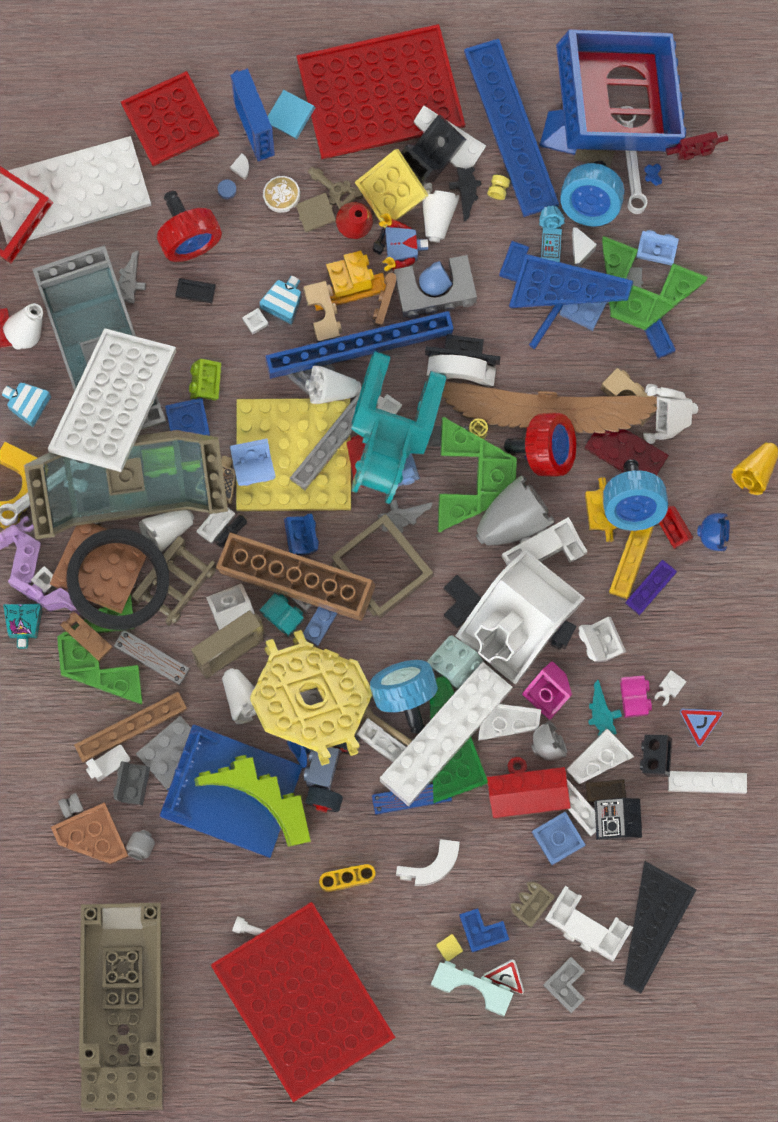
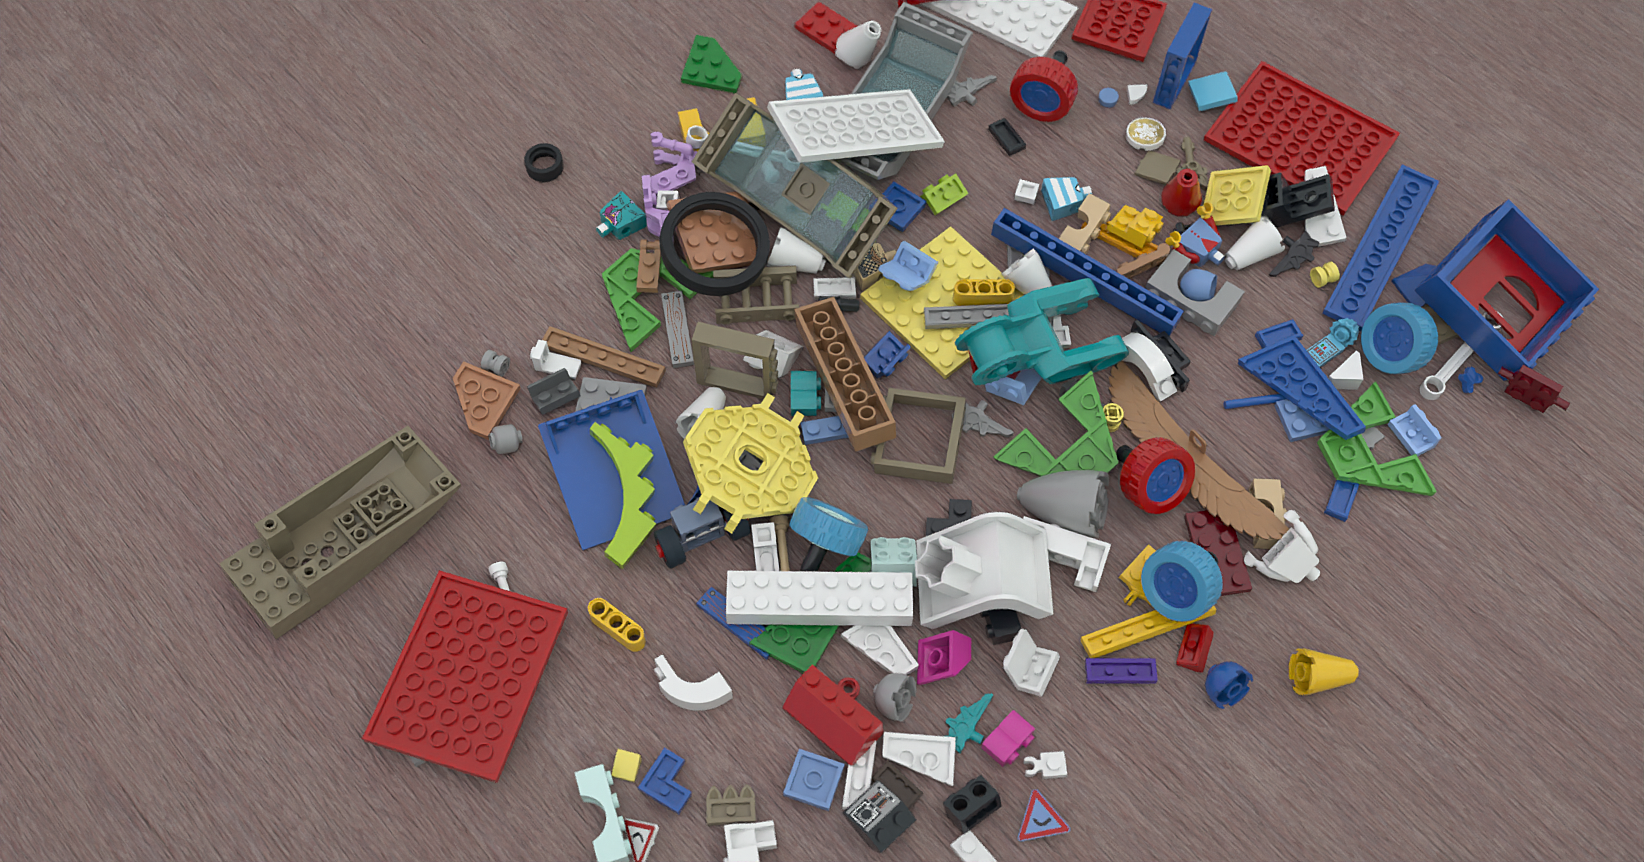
camera: 50 degrees right, 15 degrees down
(319, 420) = (991, 287): none -> yellow beam

